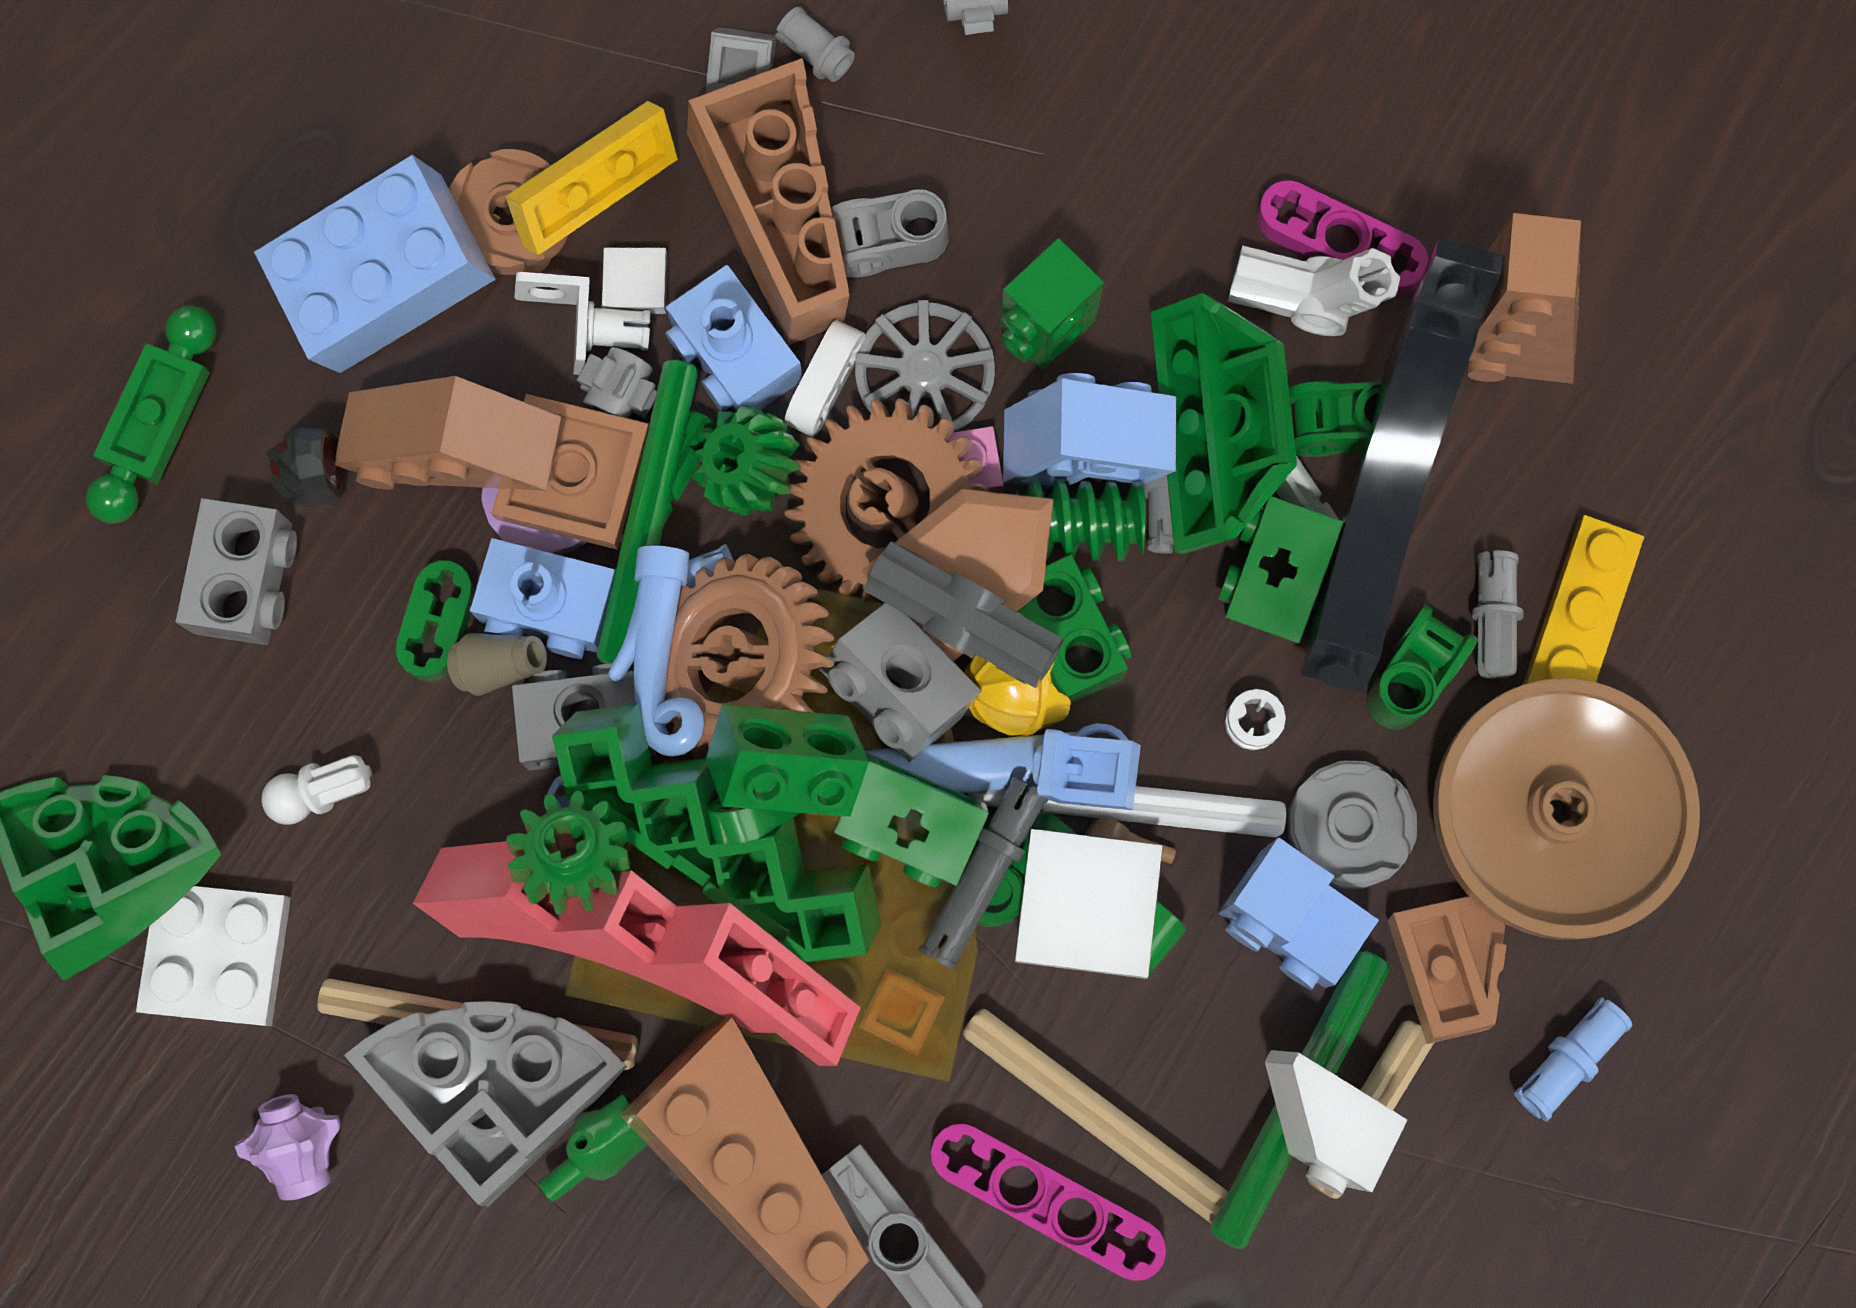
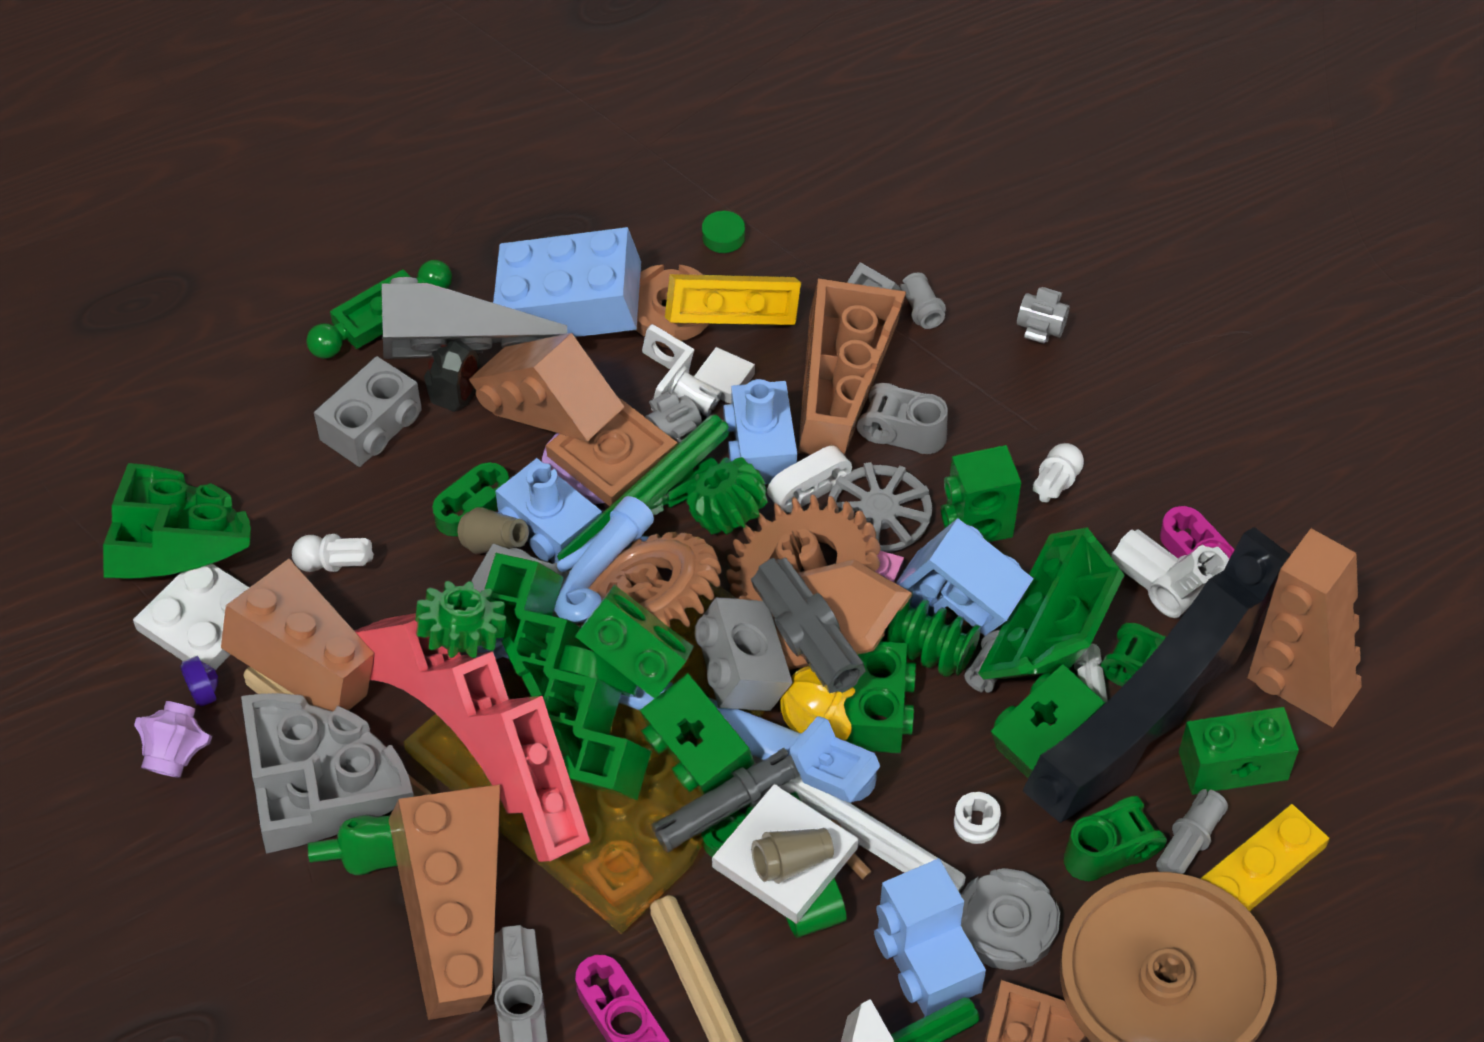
camera: 30 degrees right, 25 degrees down
(252, 413) = (426, 316): none -> light grey wedge
(272, 1048) = (200, 680): none -> dark purple tile
(361, 940) = (298, 640): none -> nougat wedge
(510, 66) = (723, 231): none -> green tile
(1105, 209) = (1058, 471): none -> white axle
(1106, 917) = (788, 853): none -> dark tan cone
(1499, 482) = (1238, 750): none -> green brick

